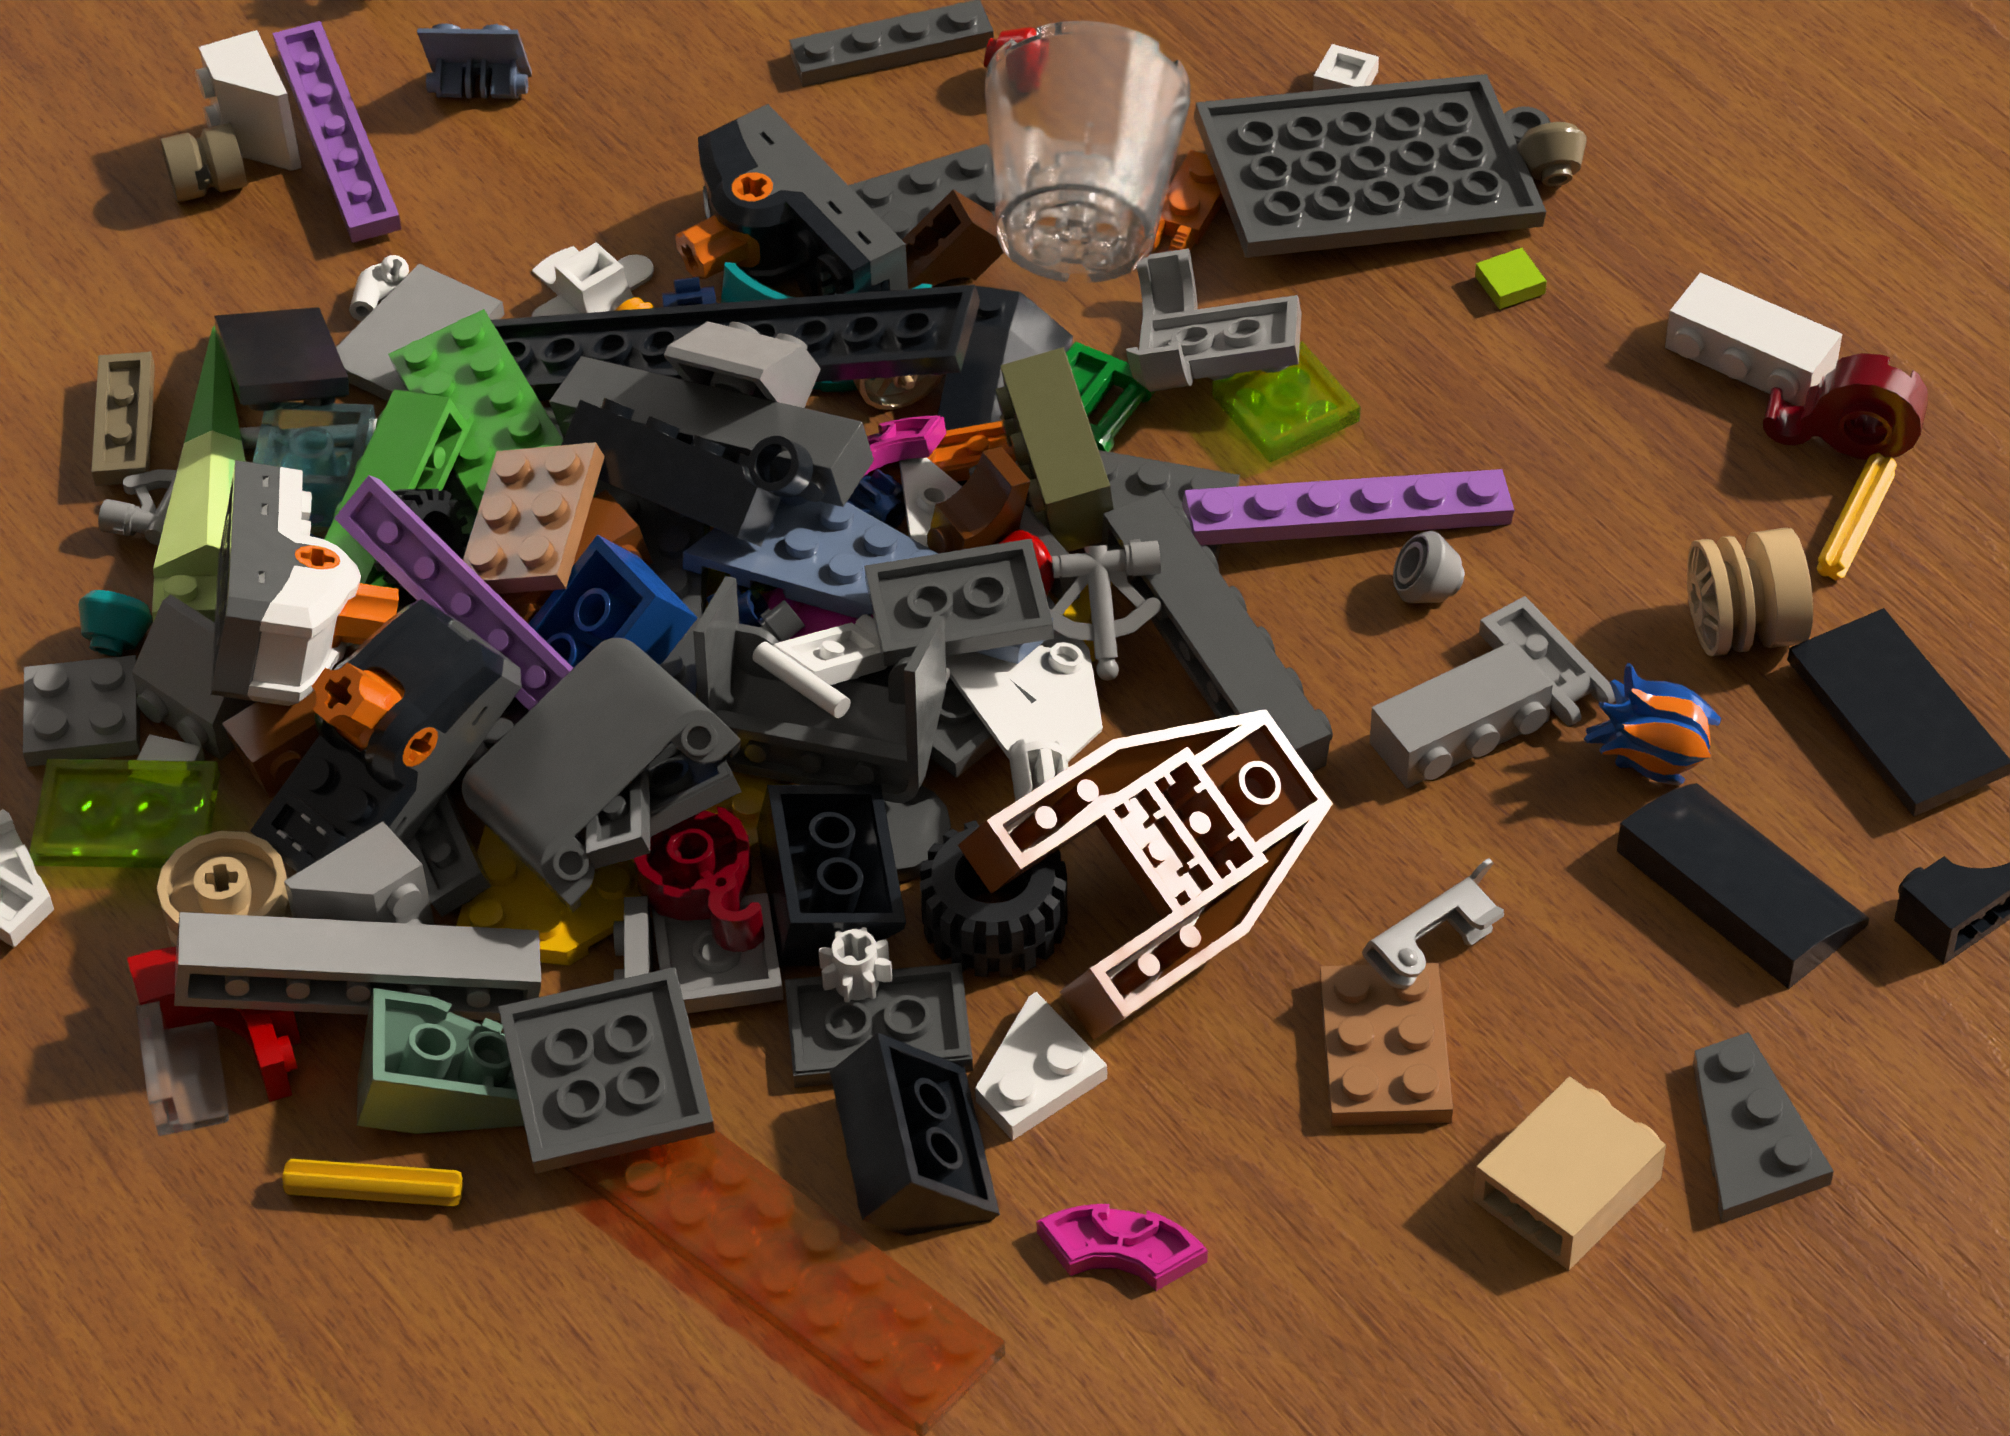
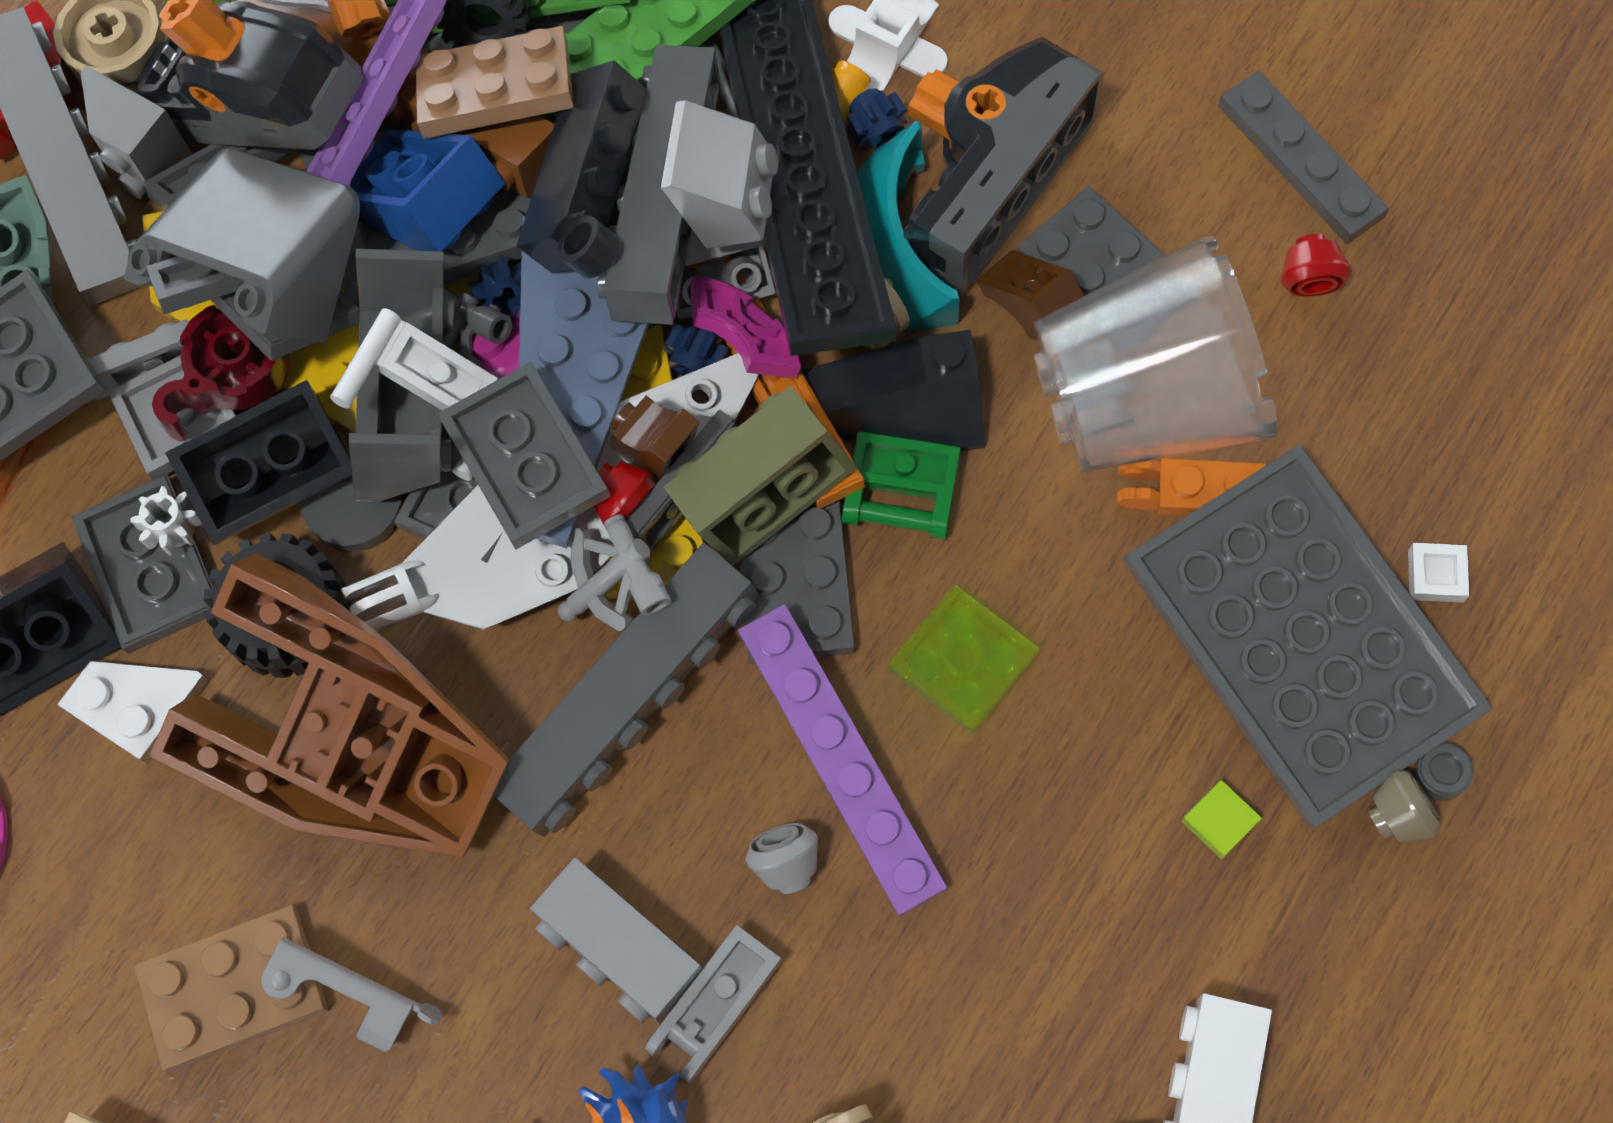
camera: 75 degrees right, 20 degrees up
(1212, 342) = (1002, 558): light grey piece -> none

